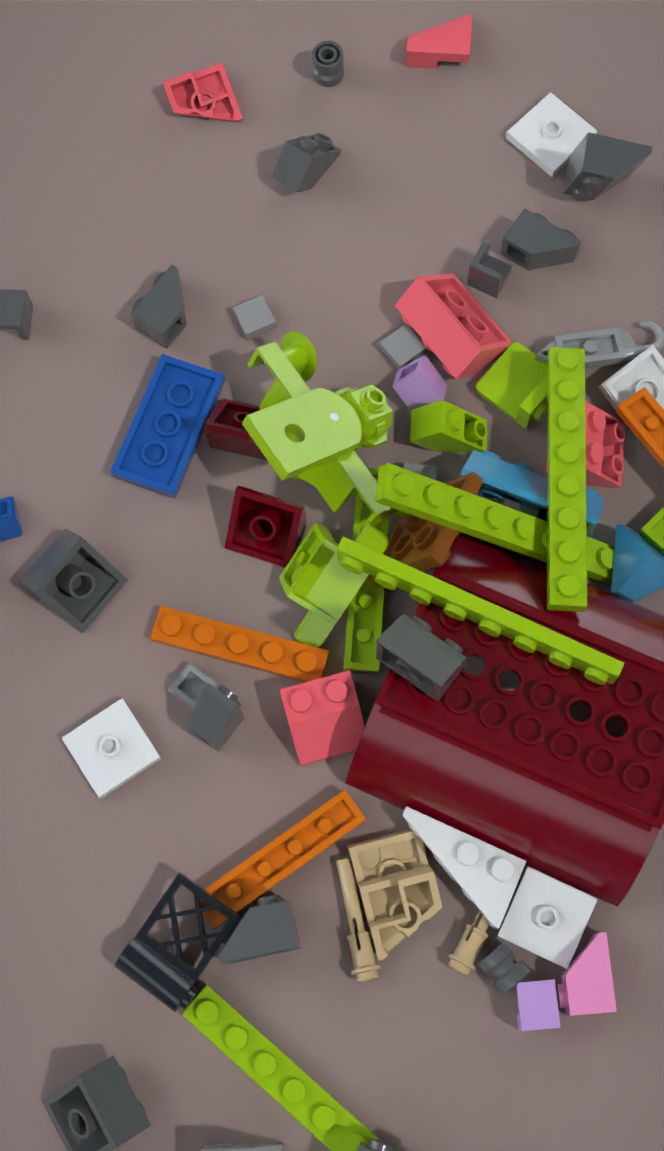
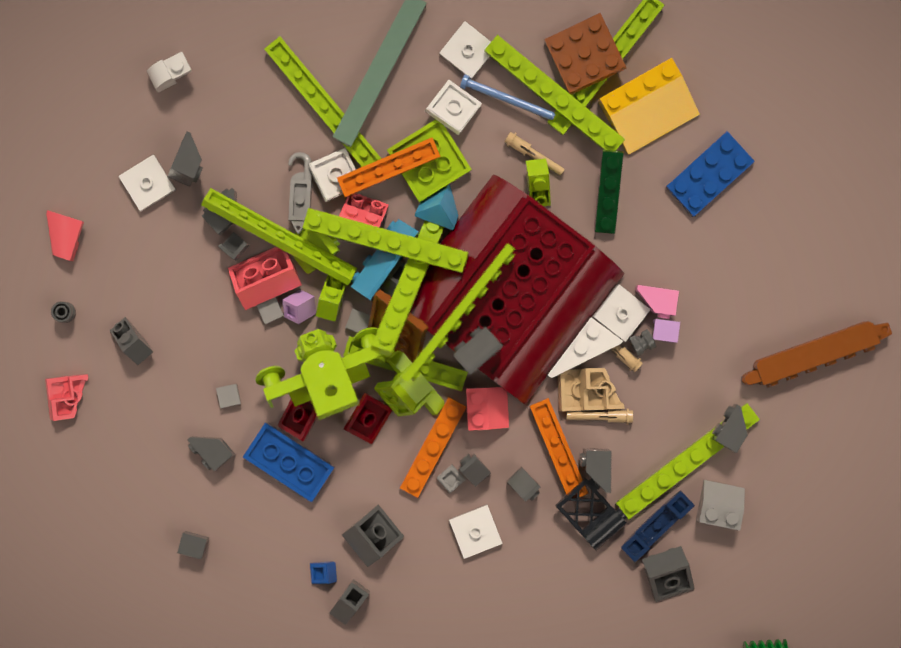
camera: 85 degrees left, 15 degrees up
(180, 1071) = (657, 525): none -> dark blue slope
(205, 809) = (524, 485): none -> dark grey slope
(524, 324) = (278, 236): none -> lime plate

